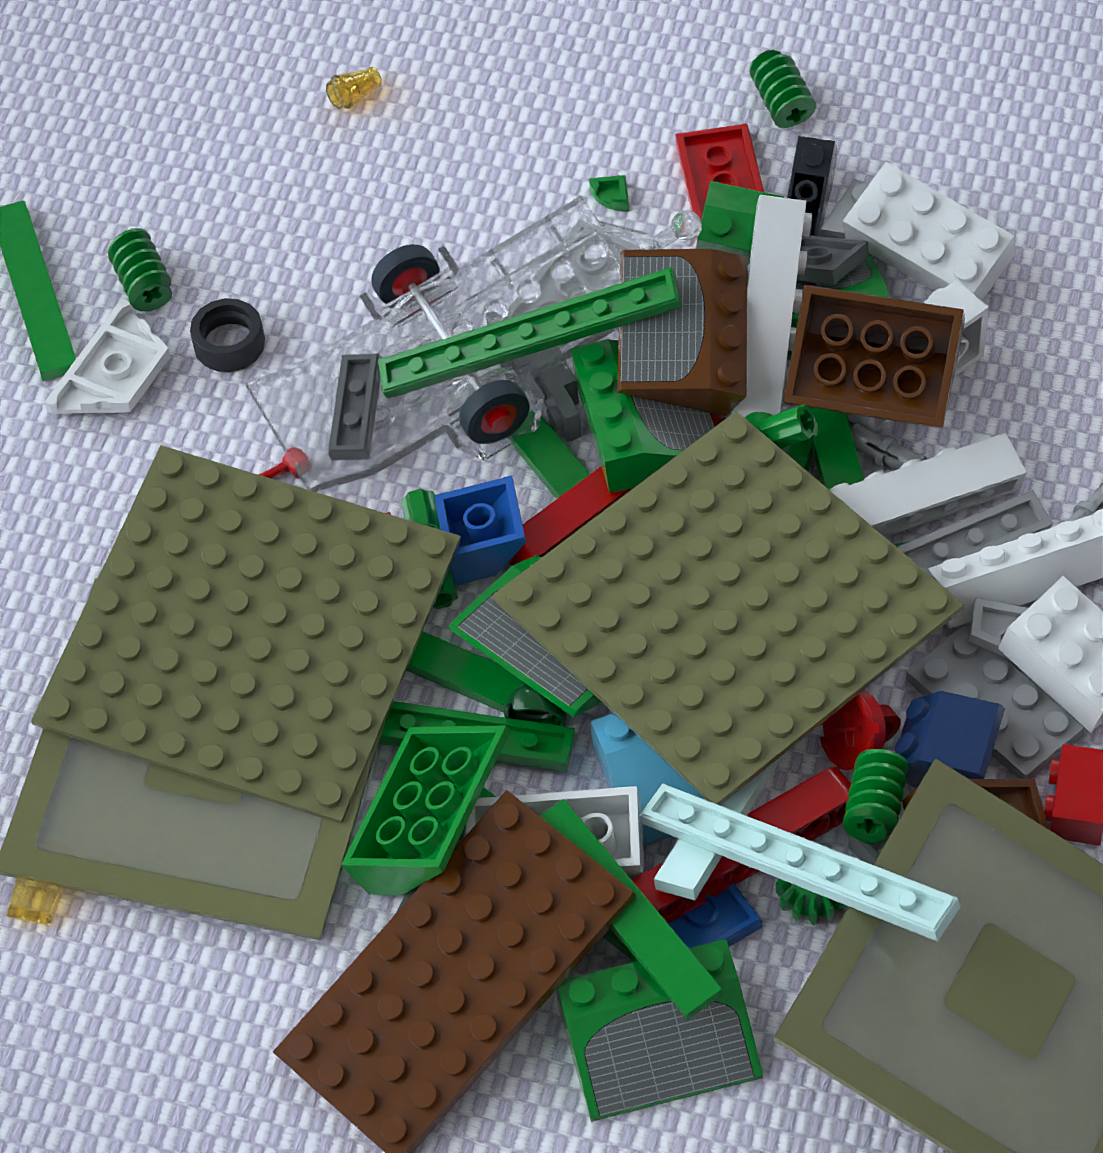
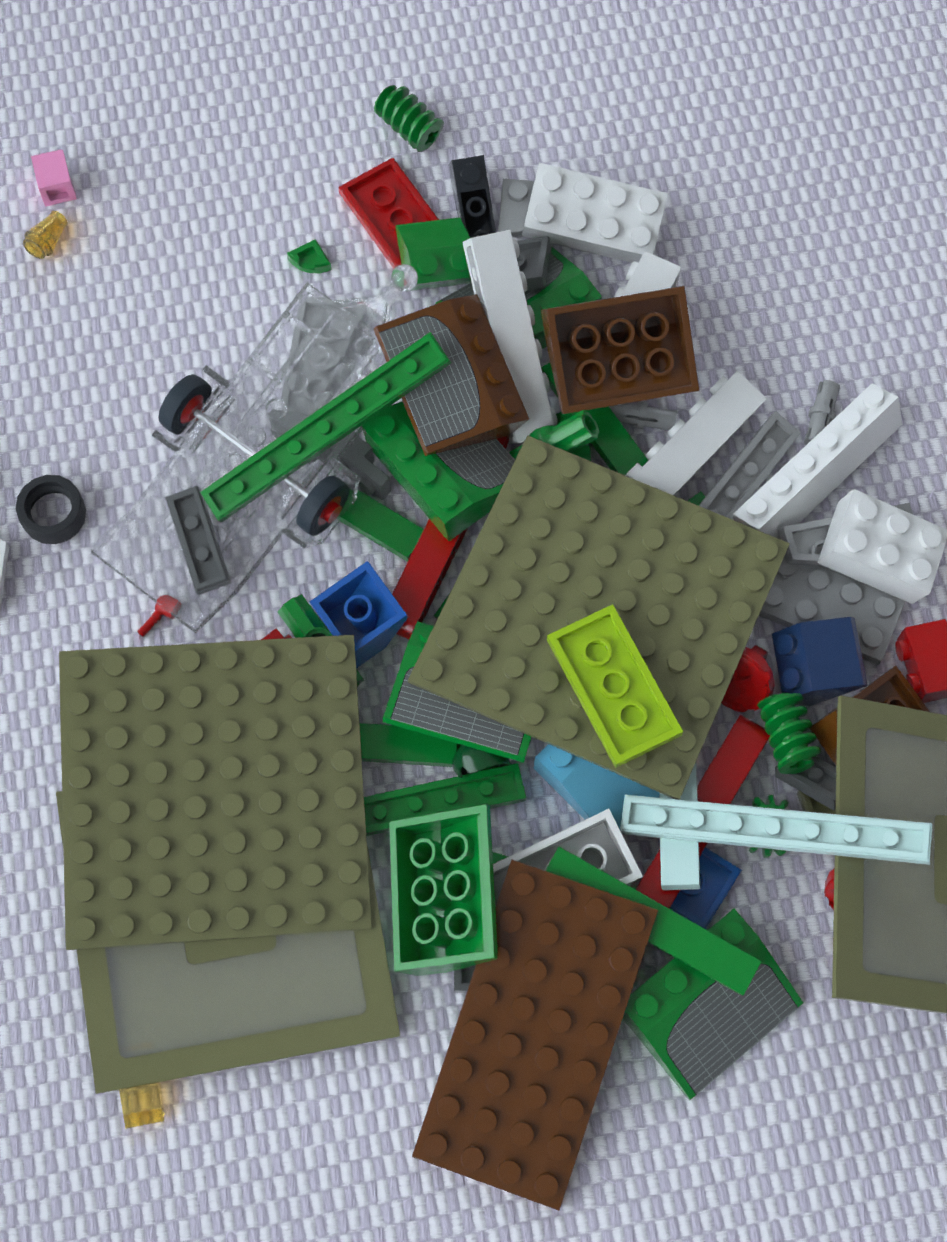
camera: 30 degrees left, 15 degrees up
(386, 37) = (53, 177): none -> bright pink panel
(697, 666) = (614, 685): none -> lime plate

